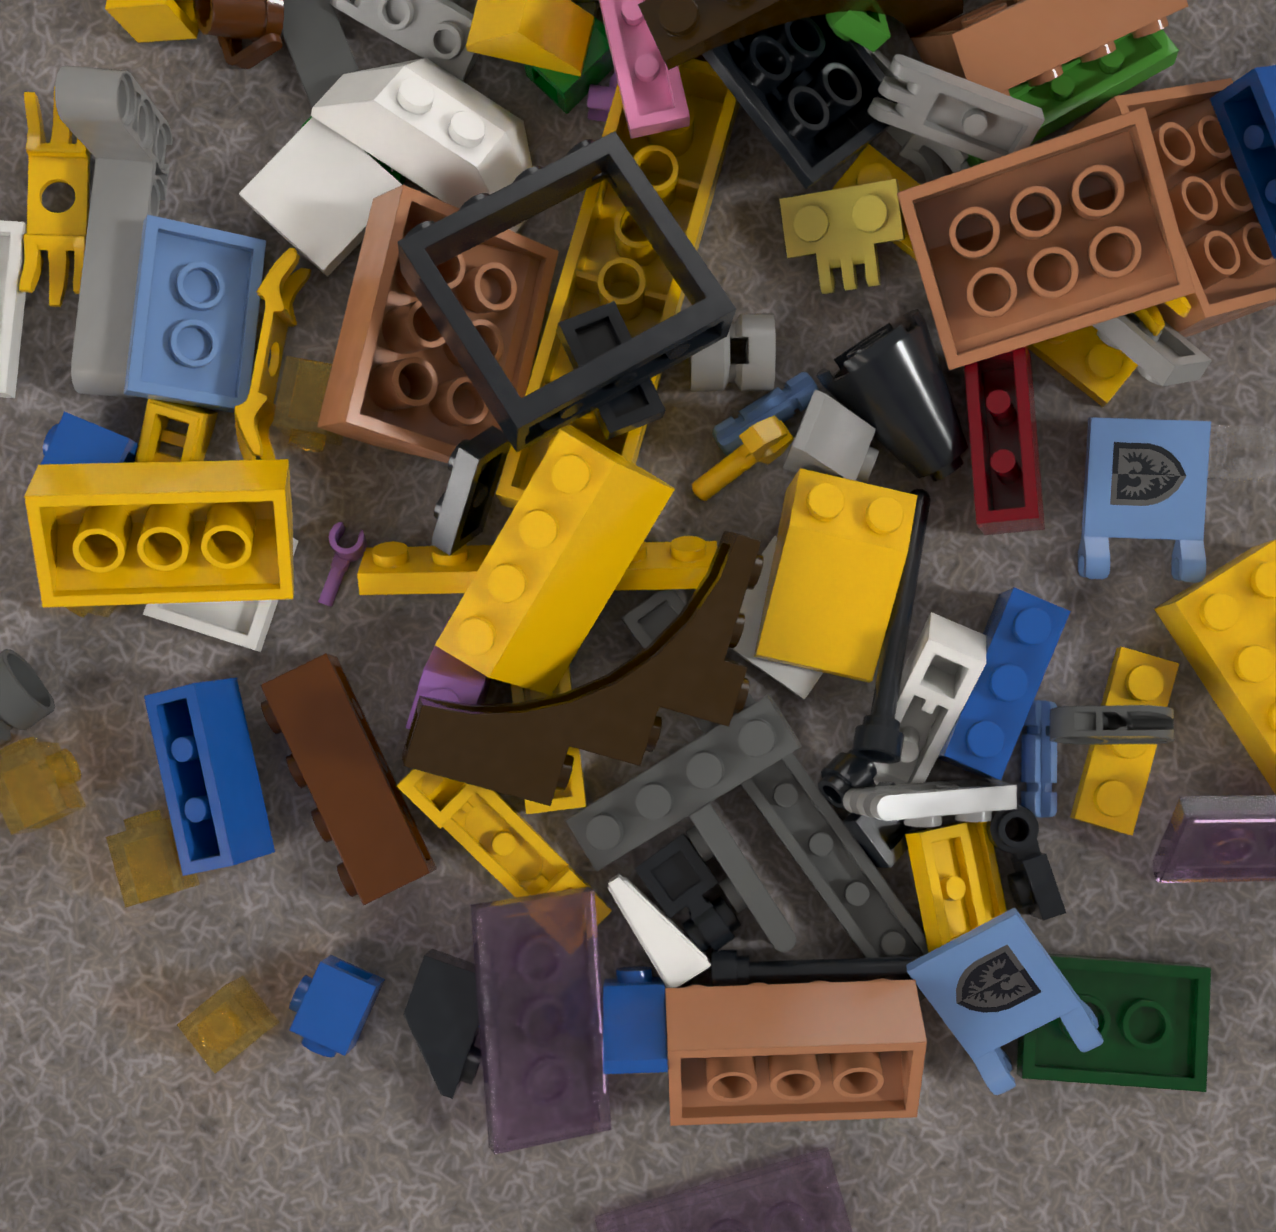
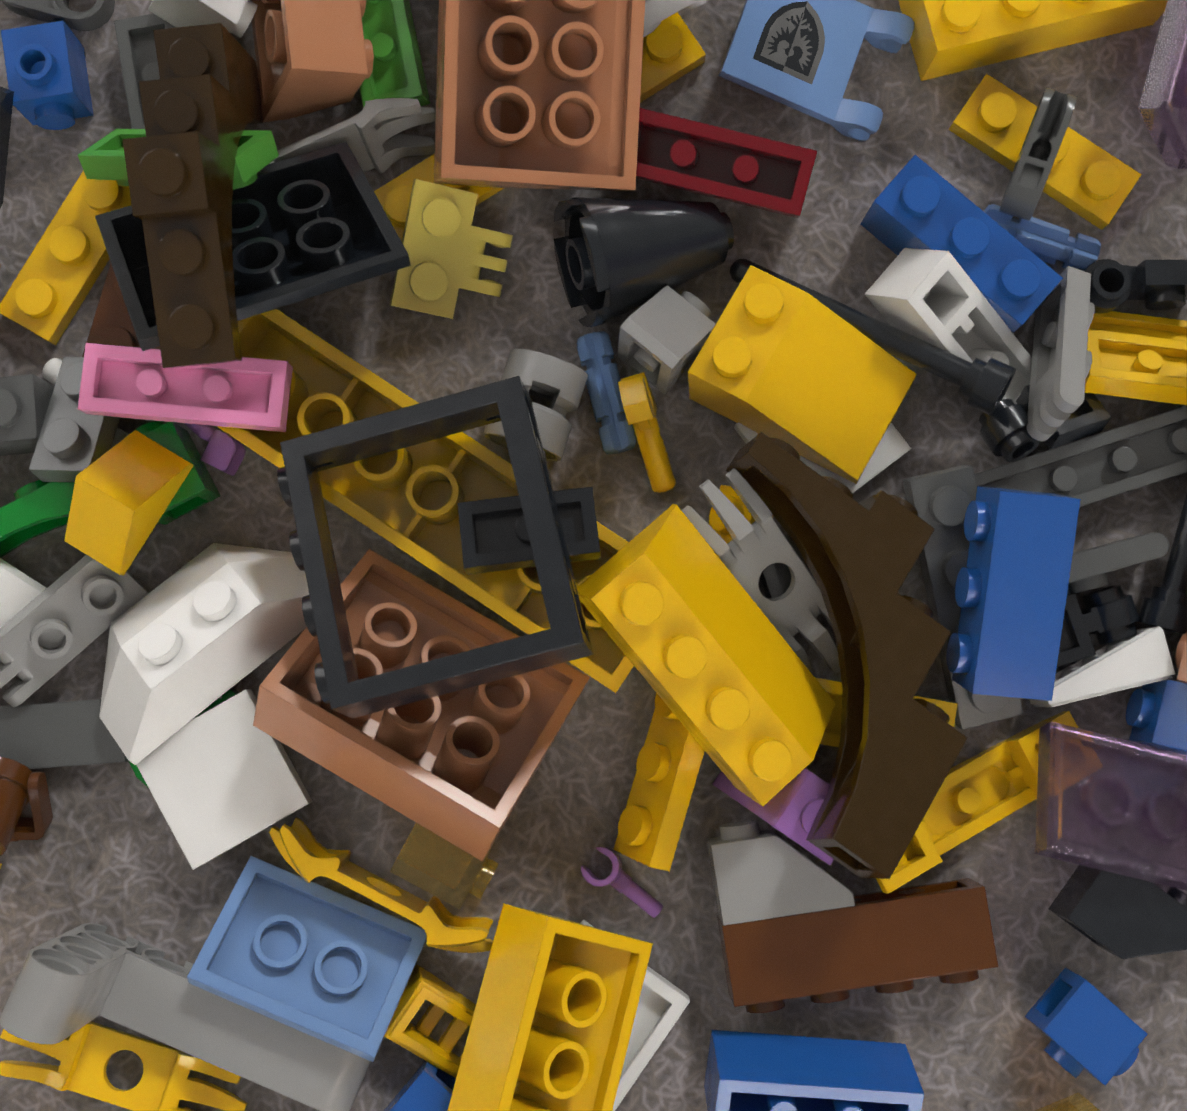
camera: 80 degrees left, 0 degrees up
(381, 682) = (766, 877): none -> light grey slope
(470, 490) = (609, 729): black plate -> none
(655, 574) = (753, 550): none -> light grey piece
(694, 812) = (1013, 592): none -> blue brick
(954, 111) = (372, 92): light grey hinge -> none

